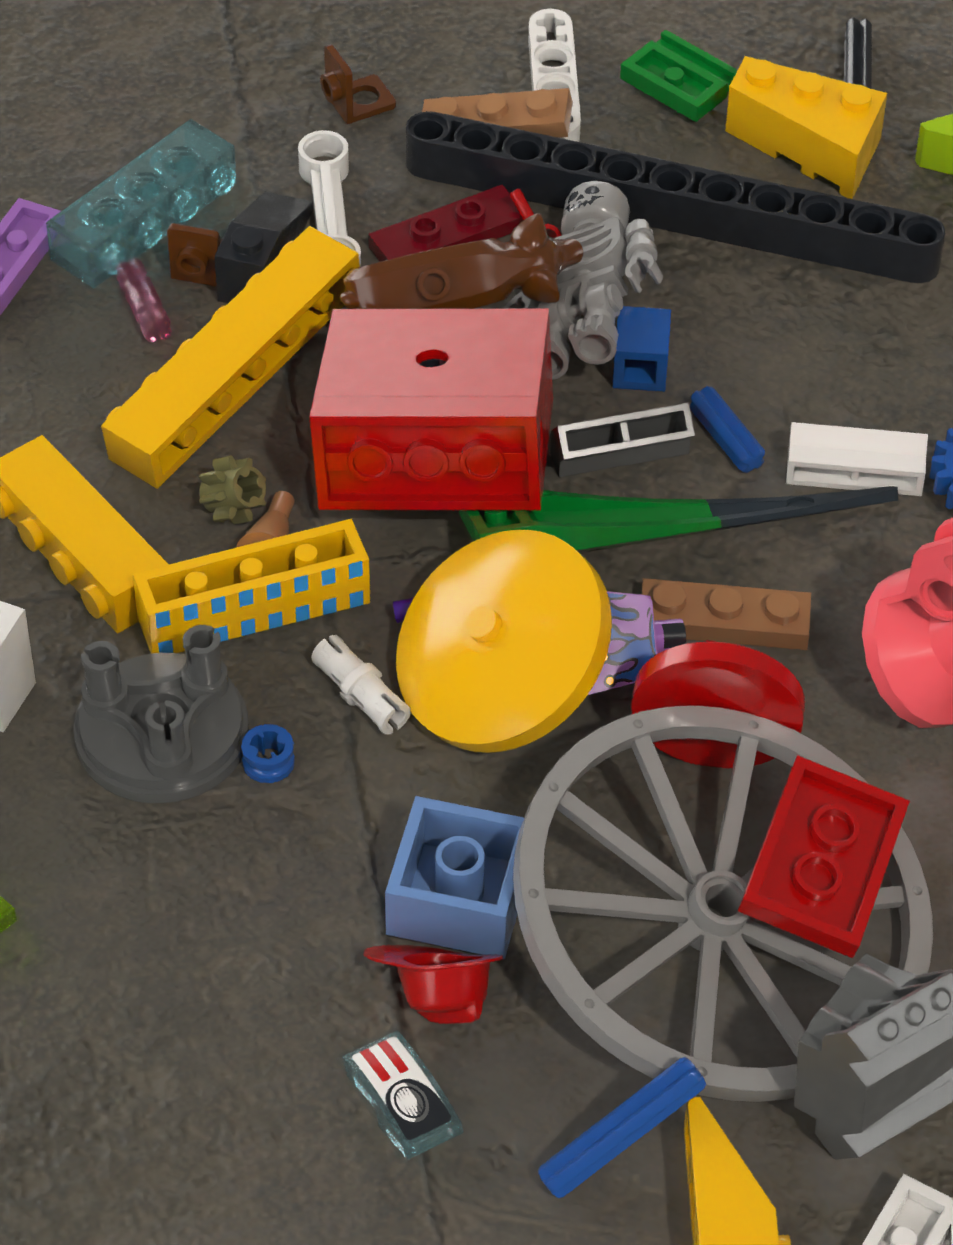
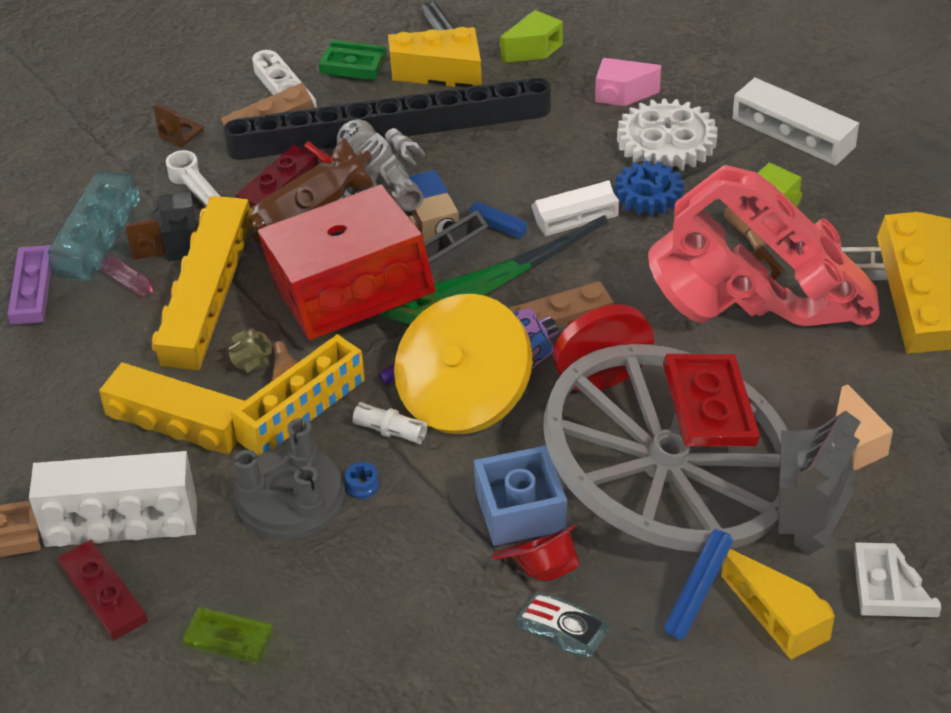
camera: 25 degrees left, 5 degrees down
(626, 384) = (434, 215): none -> tan brick

